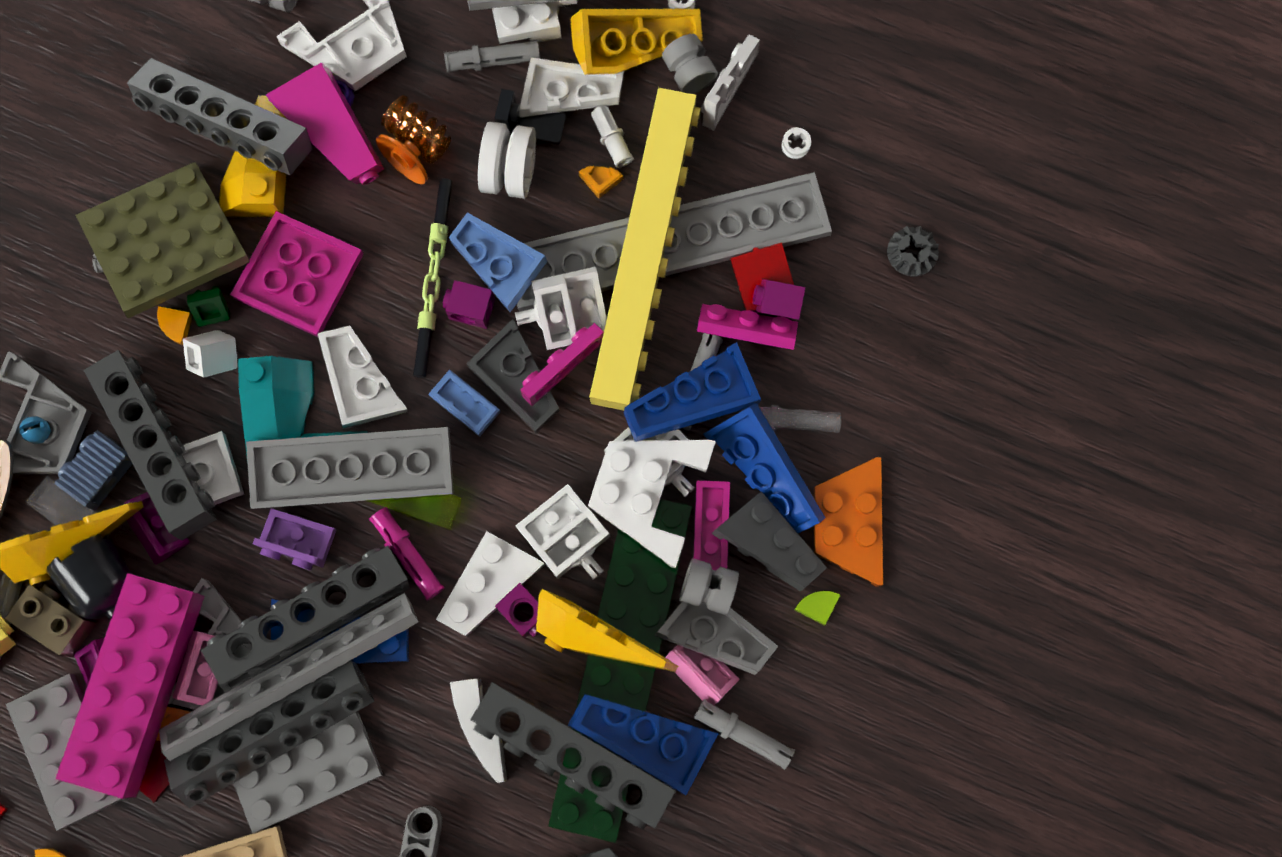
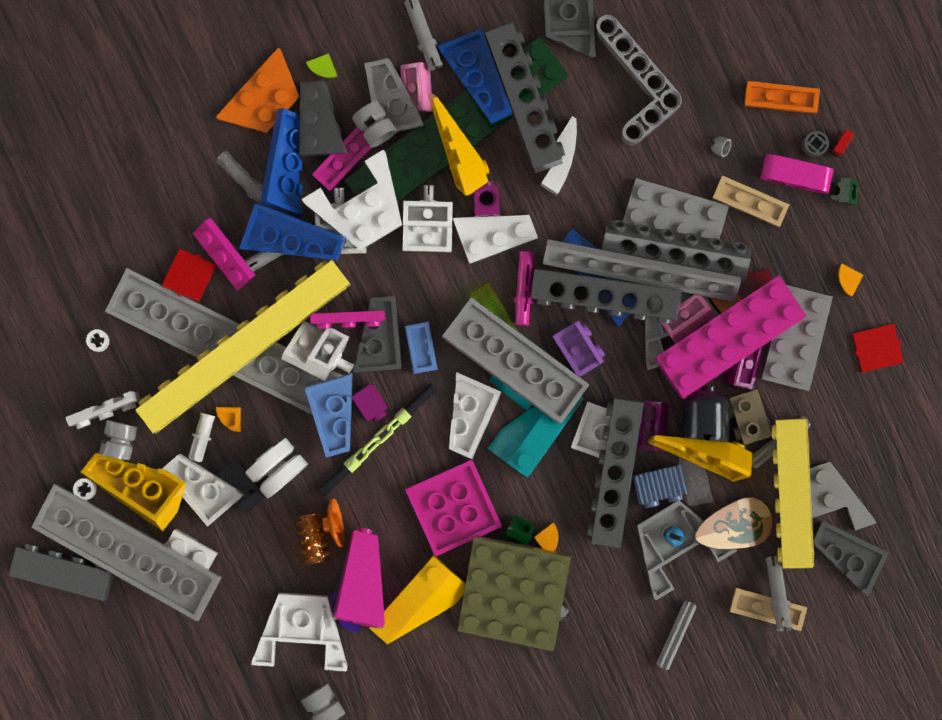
camera: 140 degrees left, 10 degrees up
(210, 353) = (541, 501): white panel -> none
(220, 116) = (437, 699): dark grey brick -> none
(491, 56) = (228, 548): light grey pin -> none
(779, 299) = (192, 253): magenta brick -> none
(905, 262) = (92, 229): dark grey gear -> none

